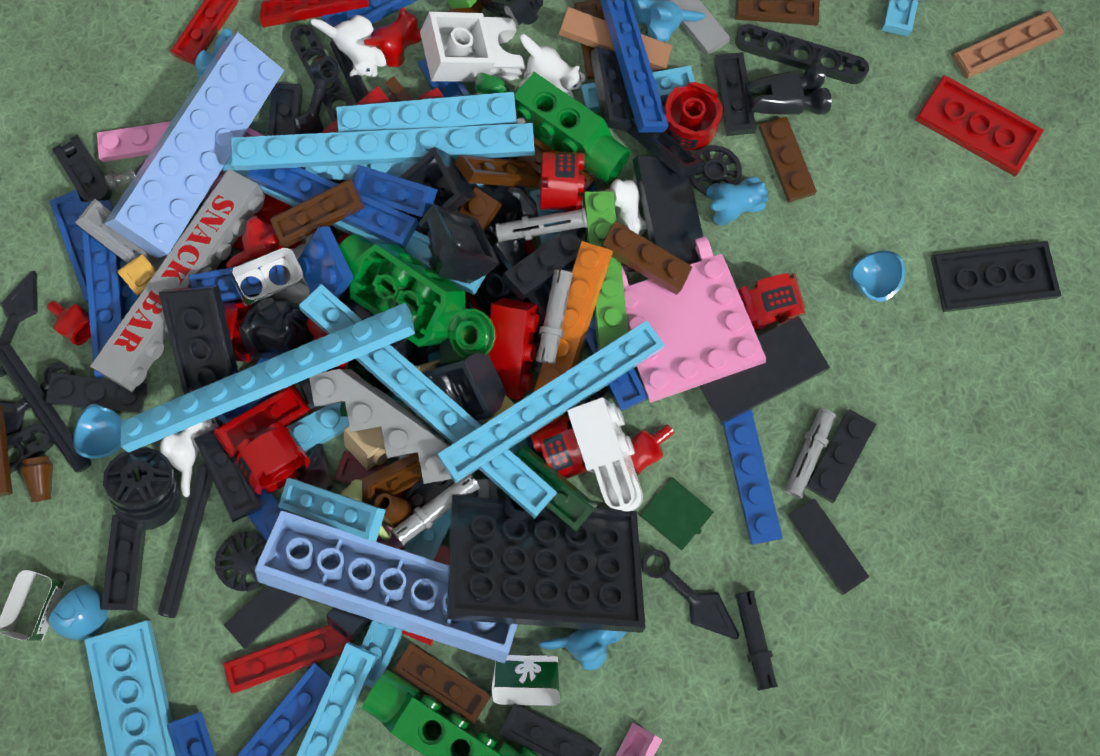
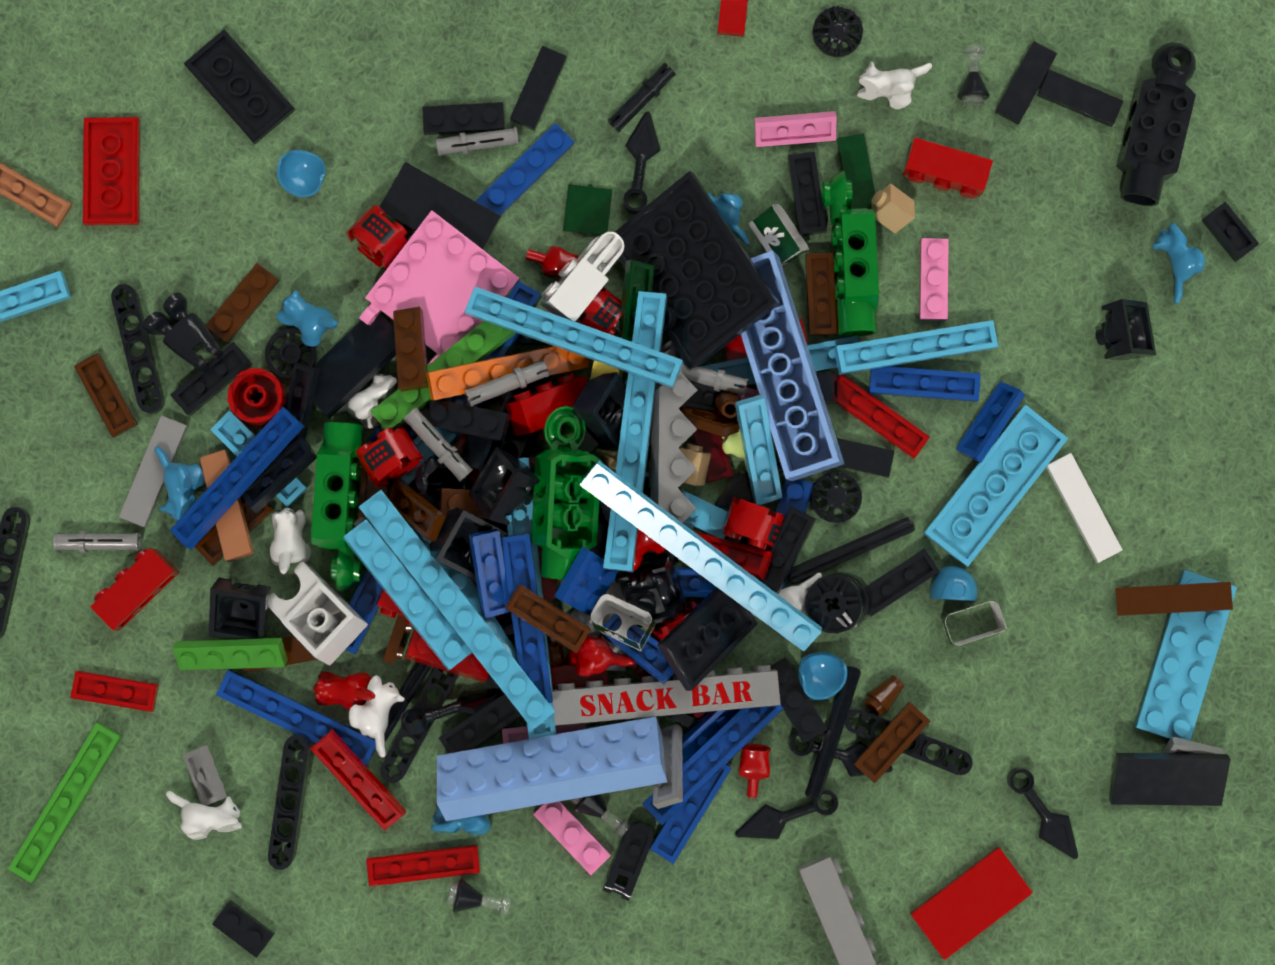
camera: 130 degrees left, 10 degrees up
(137, 273) = (684, 732): tile -> none
(159, 26) = (464, 897): none -> piece

